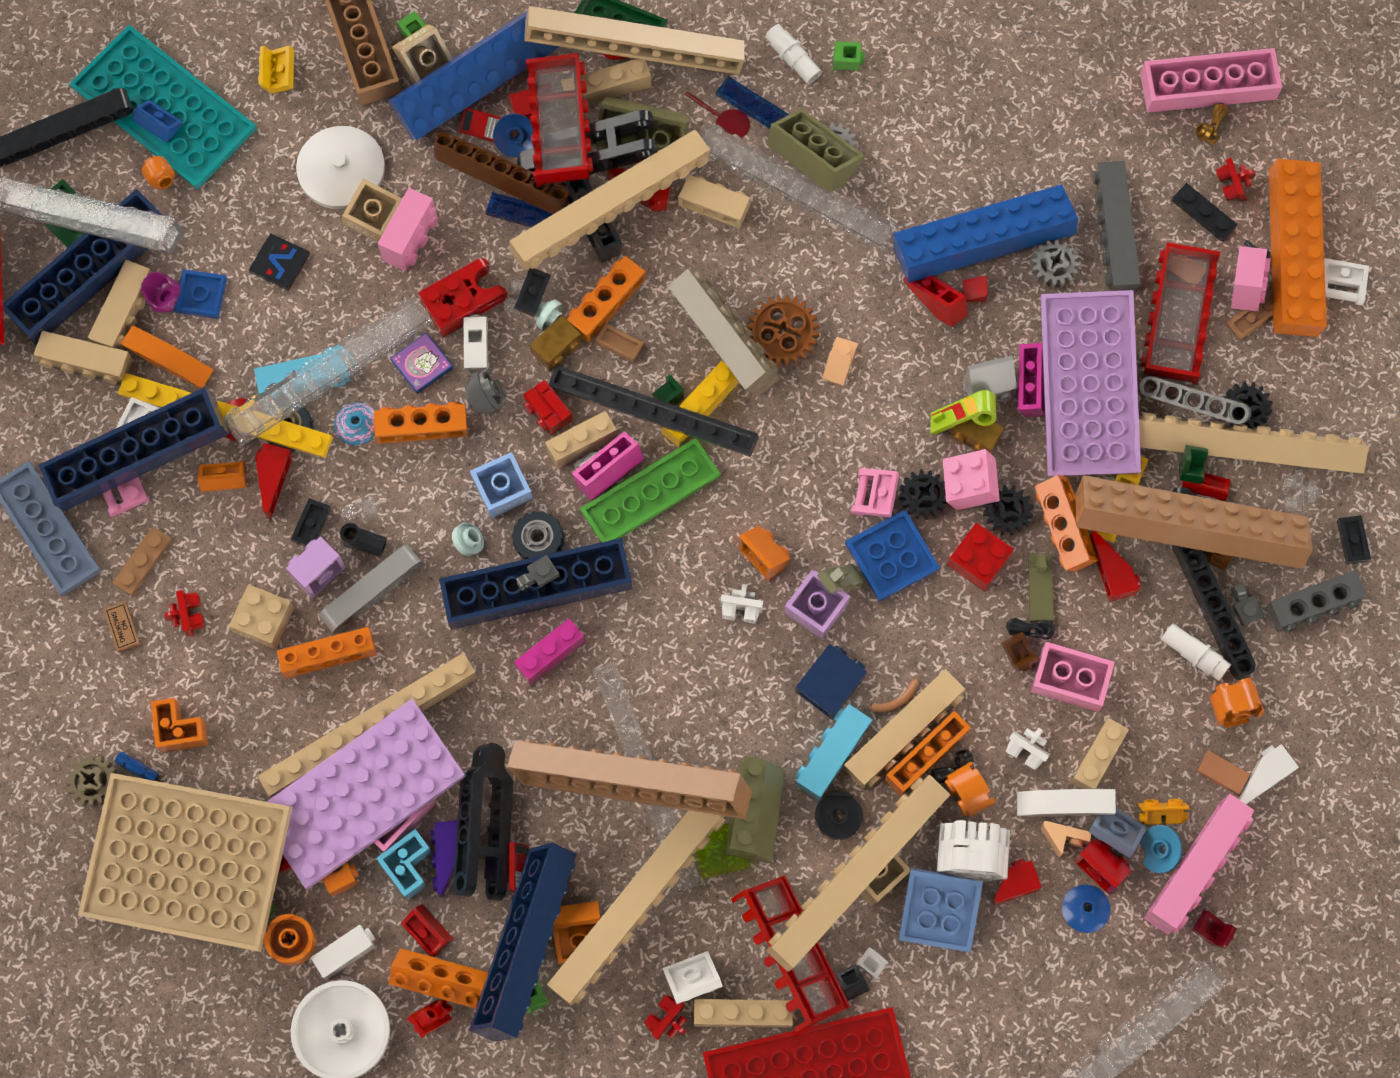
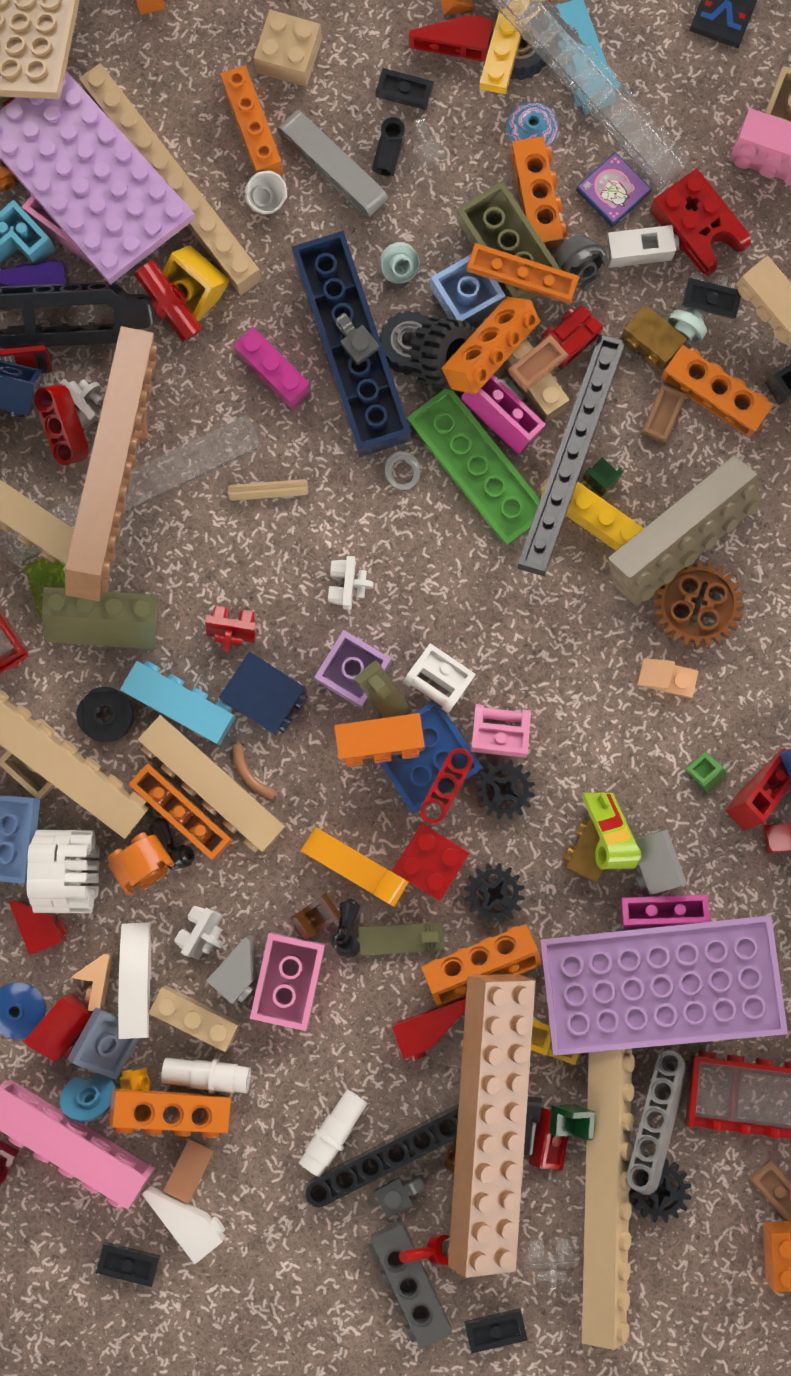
camera: 85 degrees right, 10 degrees up
(315, 567) = (347, 95): lavender brick -> none
(391, 645) = (265, 192): none -> white hair
(463, 447) = (500, 224): none -> olive slope
(467, 717) = (196, 279): none -> yellow slope
(482, 732) = (168, 301): none -> red piece
(495, 435) = (522, 273): none -> orange tile
(555, 465) = (490, 345): none -> orange brick
(555, 505) = (434, 346): none -> black tyre
(570, 812) = (88, 410): none -> white hips
(574, 430) = (538, 363): none -> nougat tile
(593, 832) = (61, 424): none -> red beam
(638, 548) = (410, 460): none -> light grey piece
(653, 676) = (268, 490): none -> tan axle
(763, 552) = (413, 602): orange slope -> none
(775, 704) = (230, 630): none -> red hips
(823, 533) = (443, 671): none -> white plate
(880, 582) = (379, 739): none -> orange brick
(918, 339) = (706, 772): none -> bright green slope
(926, 546) = (447, 772): none -> red beam
(971, 479) = (524, 844): bright pink brick -> none
(981, 616) = (354, 866): none -> light orange beam
(1062, 715) = (236, 973): none -> light grey slope
(1146, 750) = (206, 1075): none -> white piece
(1170, 811) = (126, 1101): none -> orange brick
(1236, 703) = (268, 1184): orange brick -> none
(1292, 582) = (431, 1252): none -> red piece
(1297, 826) = (128, 1264): none -> black plate

